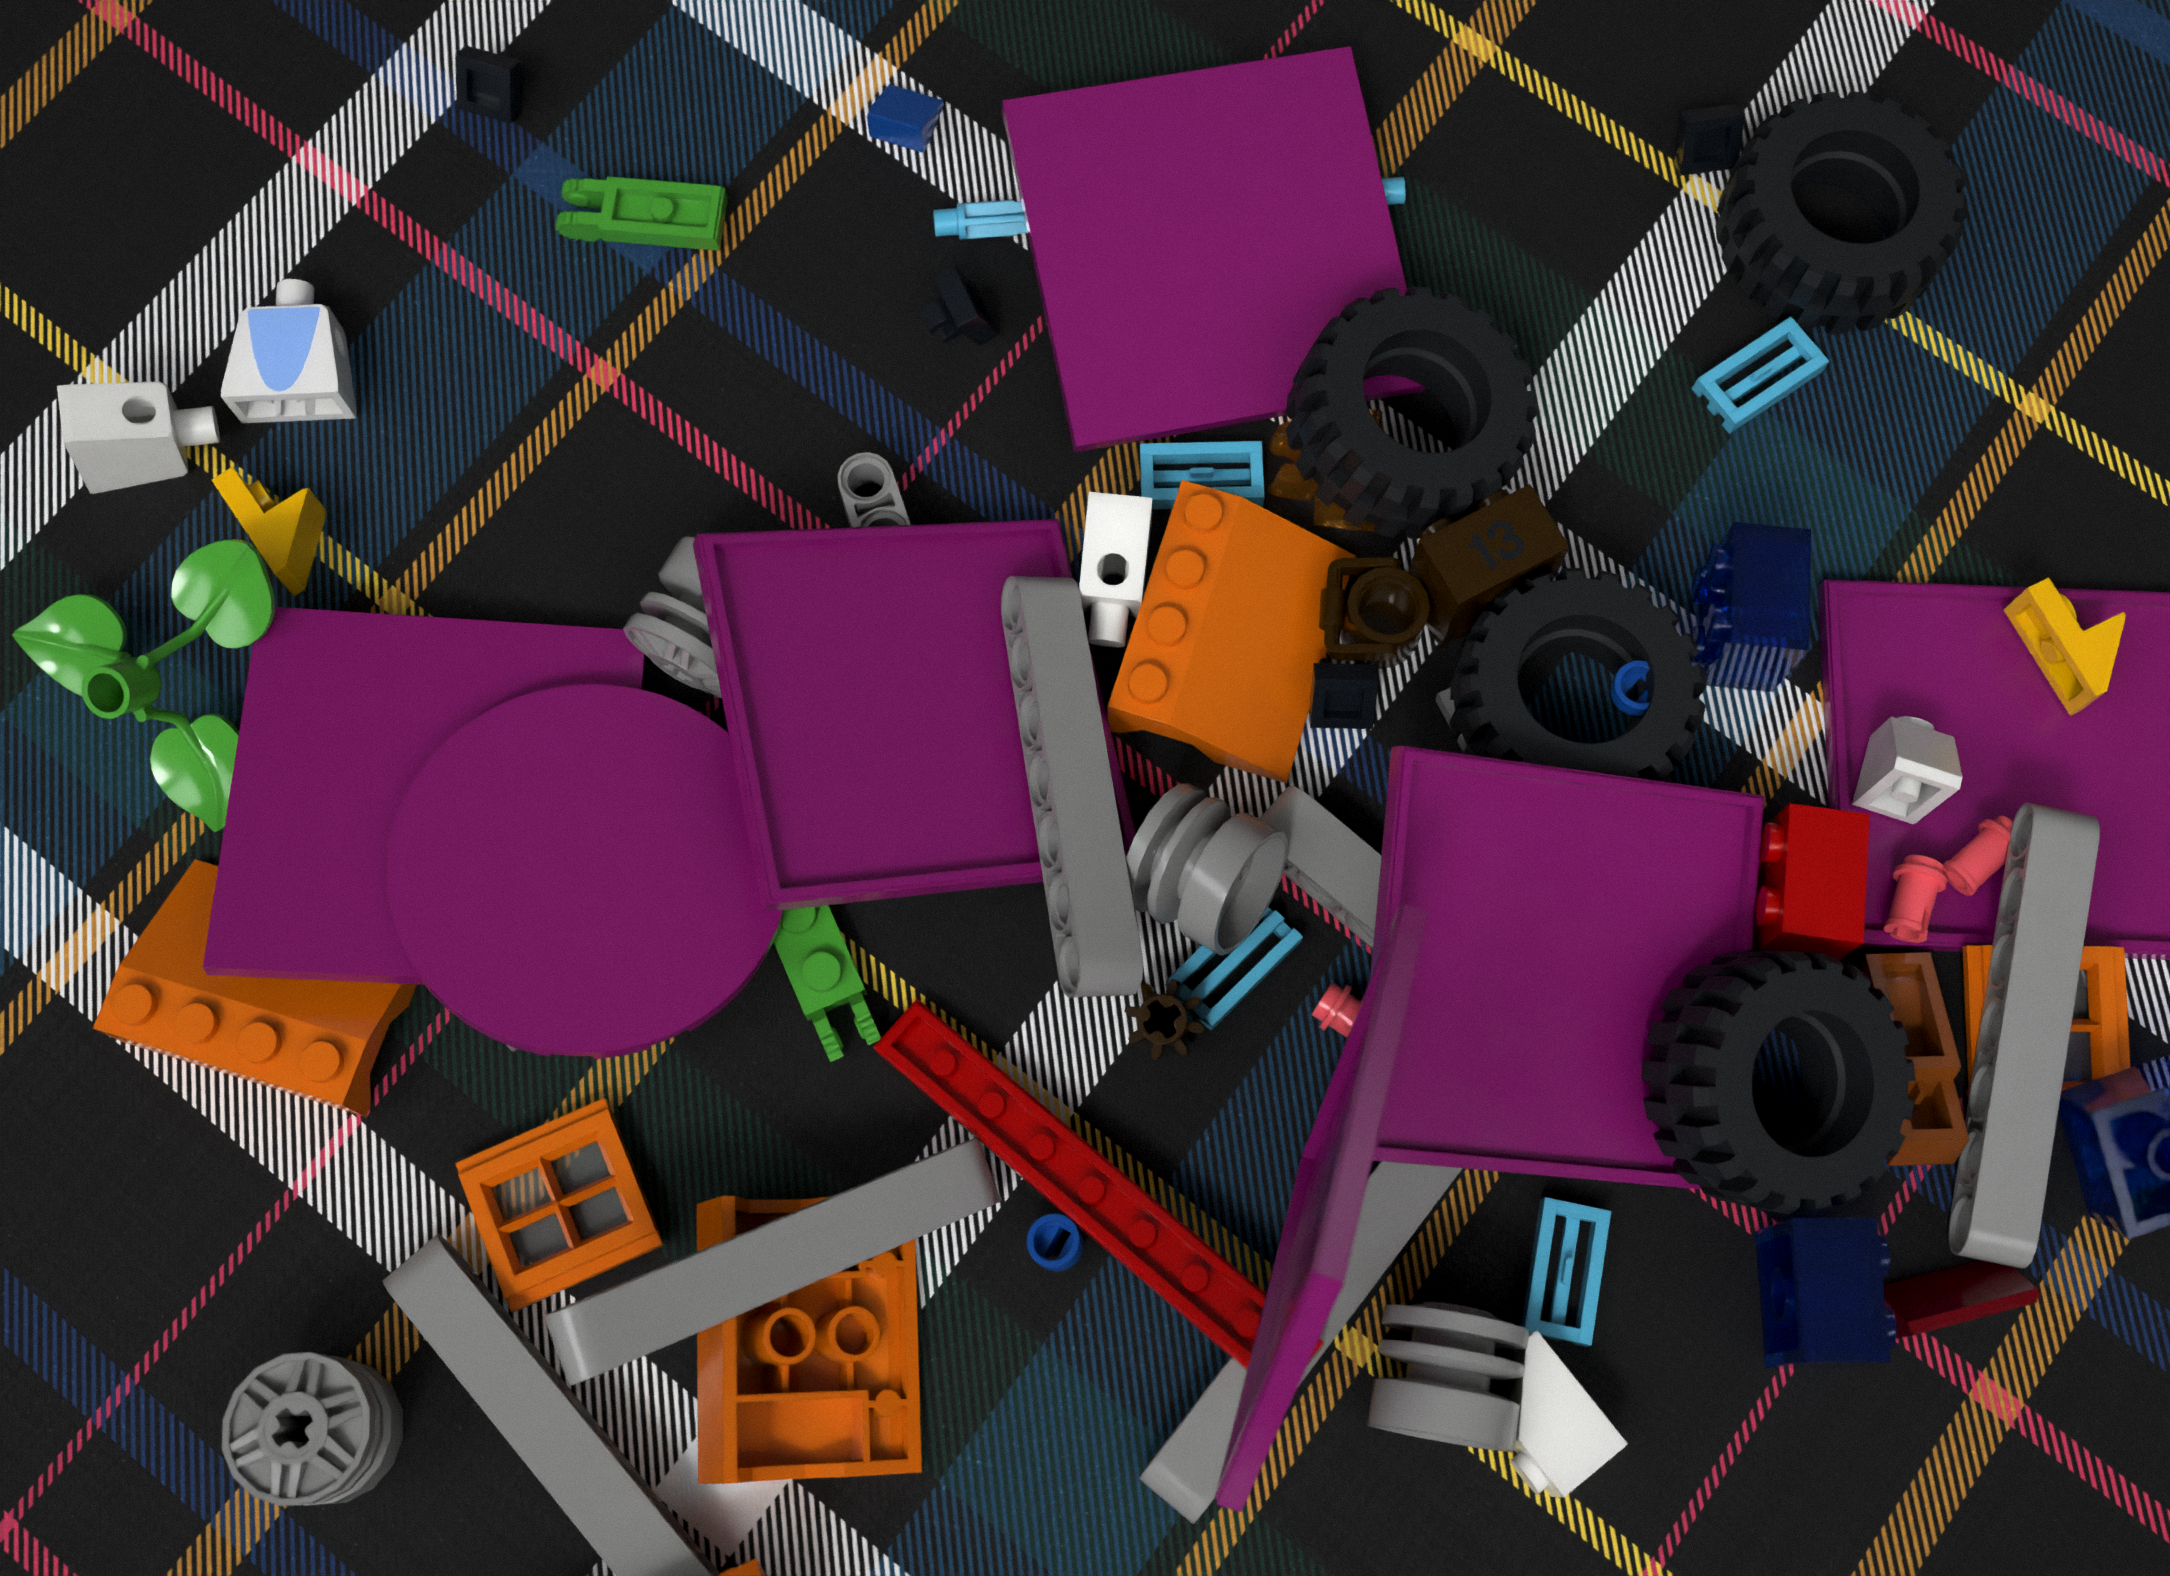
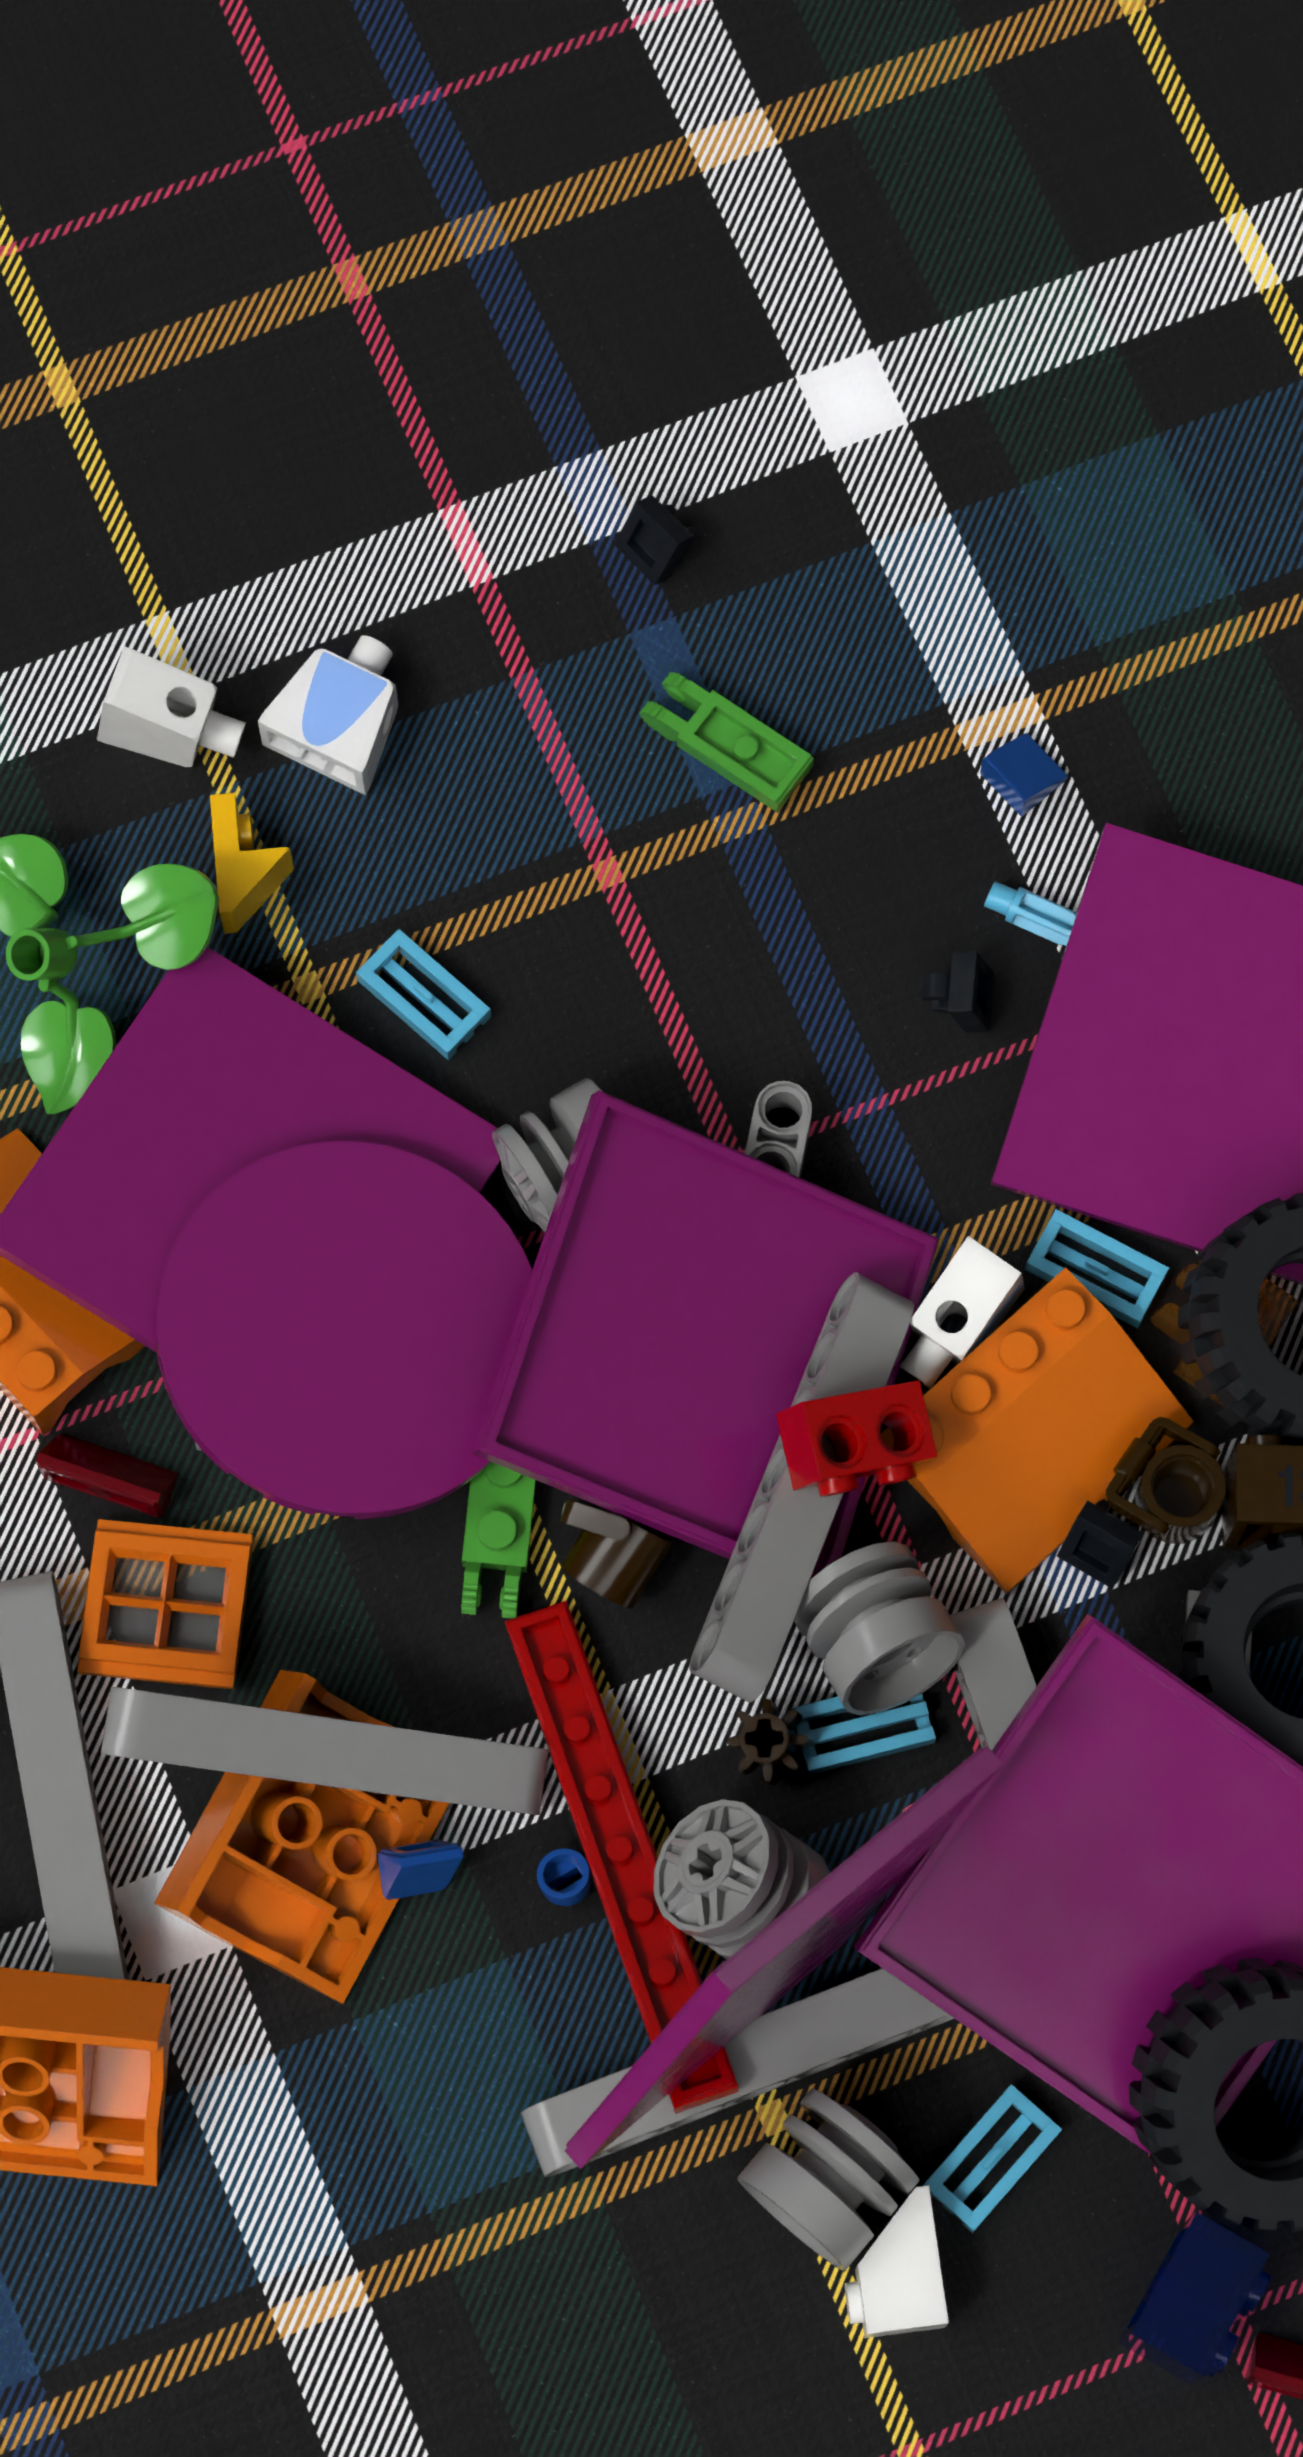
camera: 30 degrees right, 0 degrees up
(442, 1119) = (107, 1475): none -> dark red slope
(548, 566) = (460, 1029): none -> medium azure tile
(920, 1309) = (418, 1868): none -> blue slope
(935, 932) = (612, 1552): none -> dark brown piece
(1090, 703) = (854, 1427): none -> red brick
(1221, 1160) = (731, 1874): none -> light grey wheel

